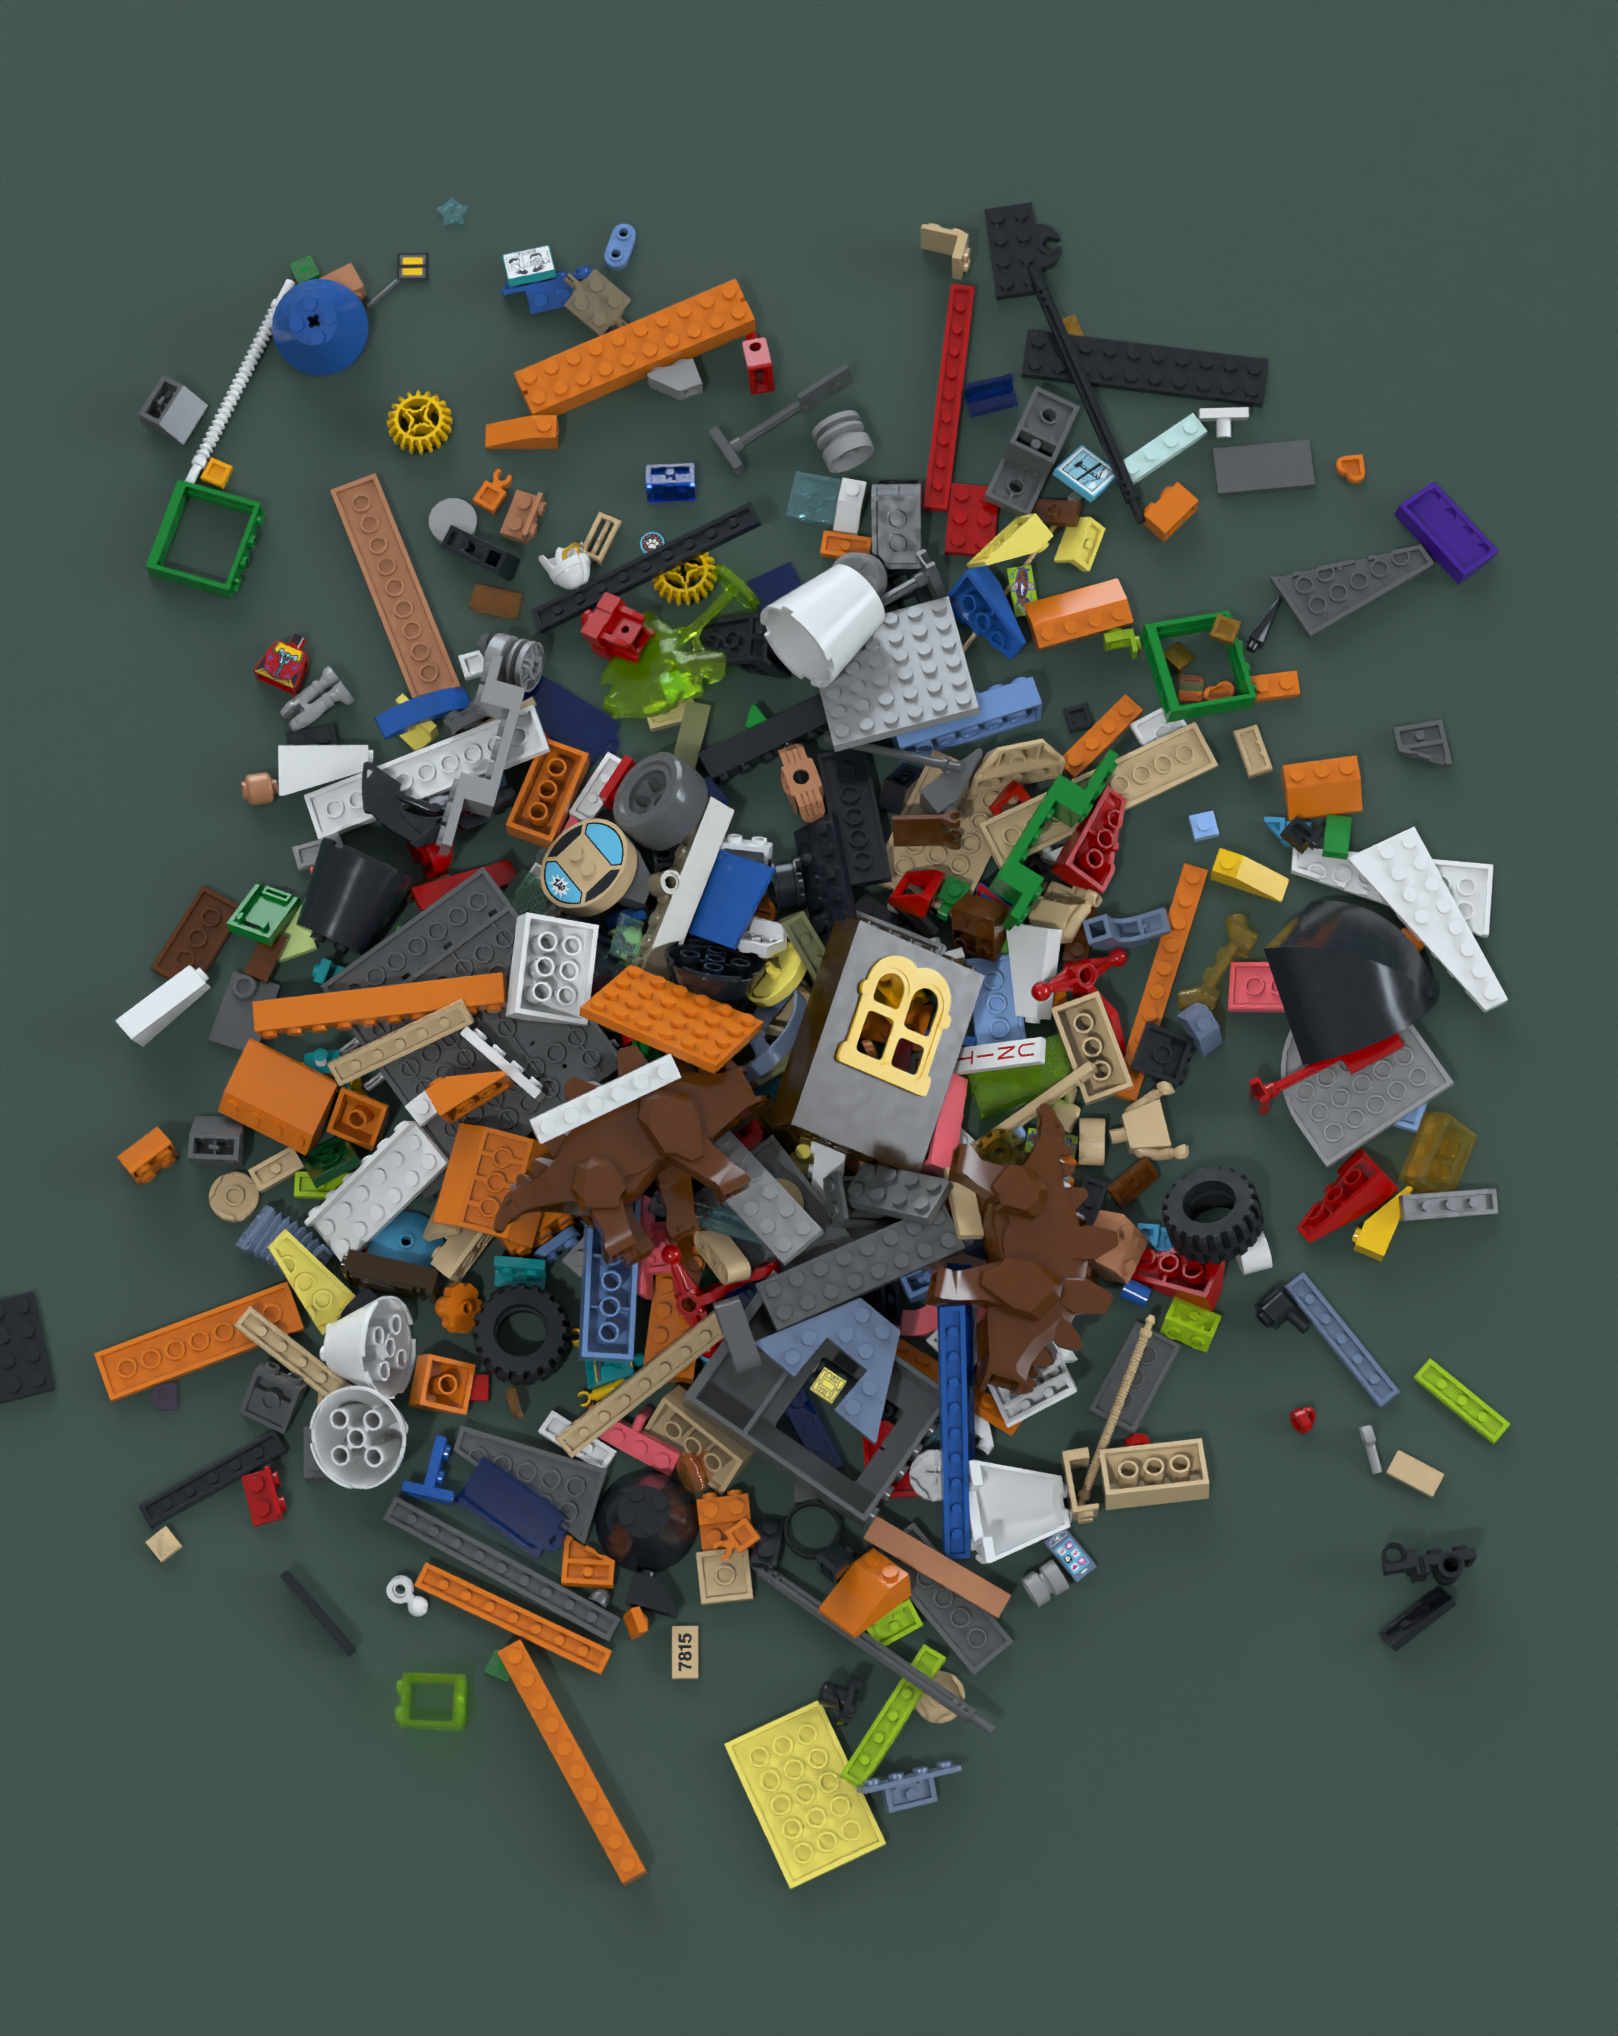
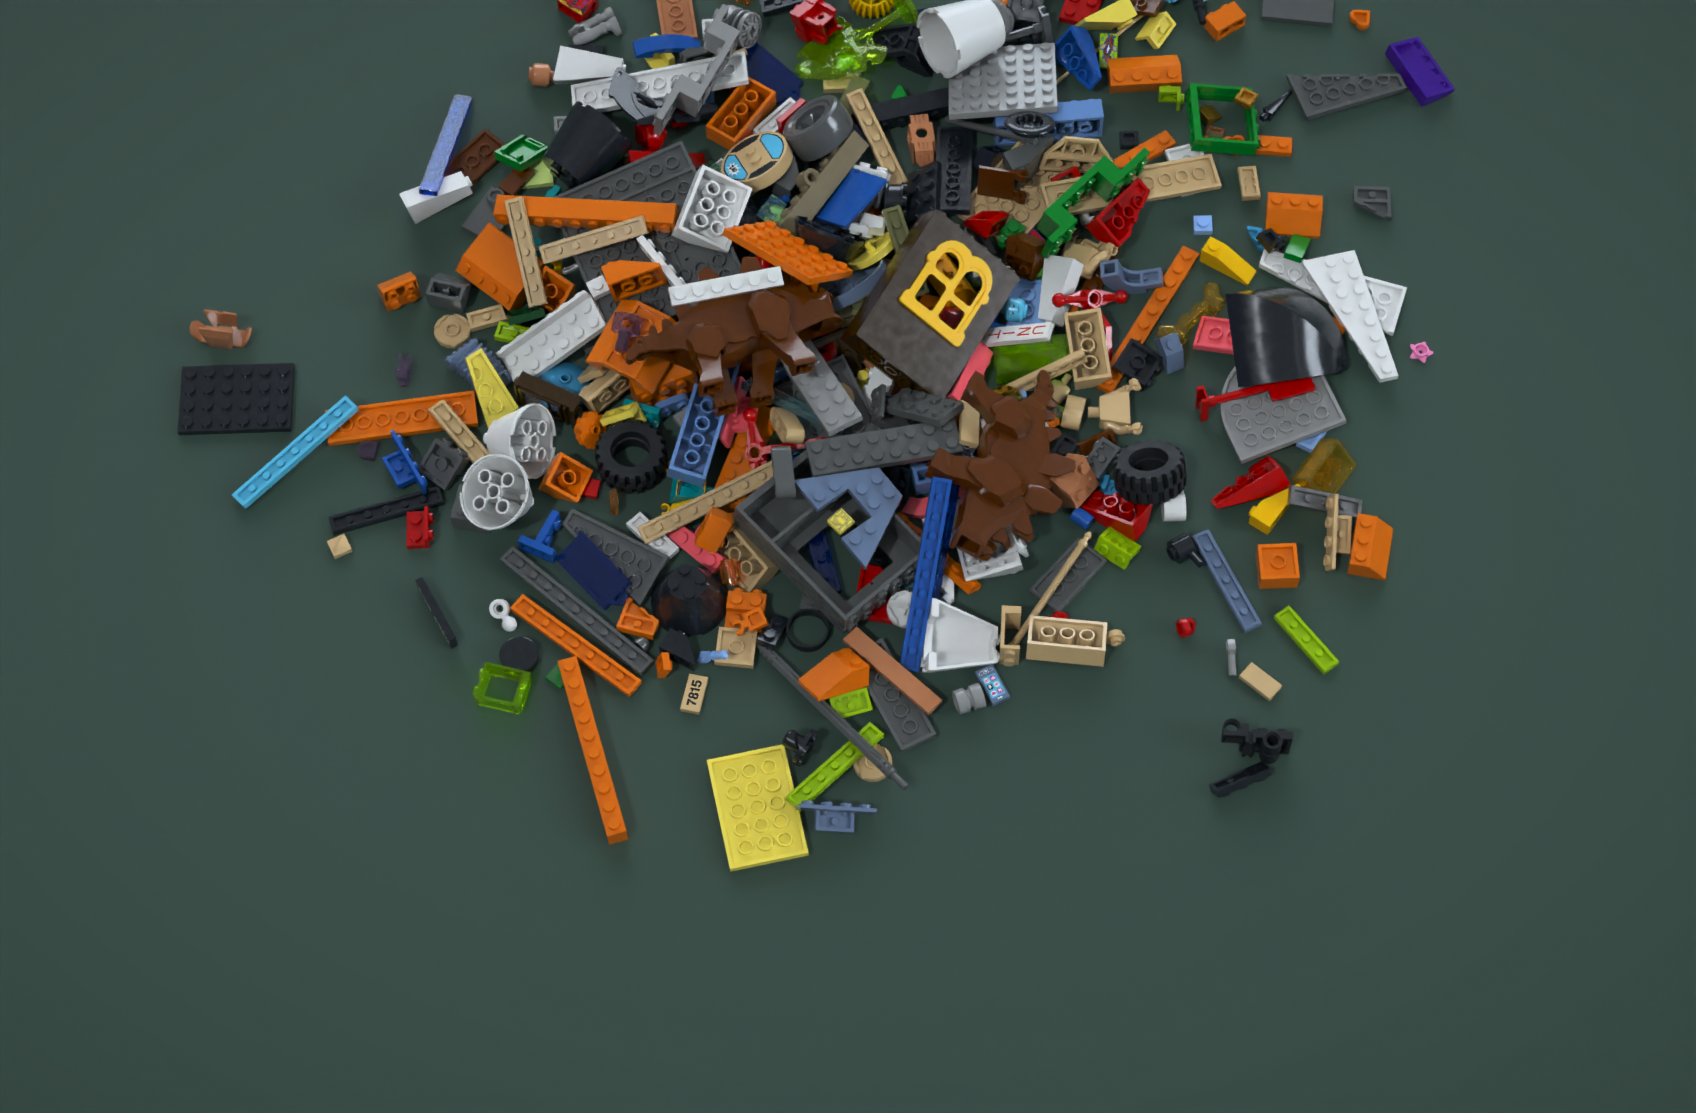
camera: 10 degrees right, 10 degrees down
(70, 1425) = (295, 452): none -> medium azure plate
(158, 928) = (445, 145): none -> clear blue tile
(184, 1275) = (403, 371): none -> clear purple plate
(217, 1413) = (401, 466): none -> blue bracket
(312, 1076) = (526, 252): none -> tan tile
(442, 1649) = (519, 654): none -> black tile
(479, 1182) = (625, 333): none -> piece
(497, 1279) = (629, 411): none -> light yellow panel
(659, 1423) = (713, 530): none -> orange brick
(689, 1597) = (706, 656): none -> light blue piece
(739, 791) = (875, 136): none -> tan tile
(835, 1562) = (816, 649): black slope -> none
(947, 743) = (1029, 124): none -> black wheel
(985, 1012) = (1015, 309): none -> medium azure head
(1144, 1203) = (1102, 456): none -> dark grey bracket
(1215, 1454) = (1115, 637): none -> tan plate
(1405, 1308) = (1277, 565): none -> orange container
(1474, 1245) = (1338, 533): none -> tan bracket
(1518, 1254) = (1370, 547): none -> orange slope
(1531, 946) = (1420, 347): none -> bright pink plate

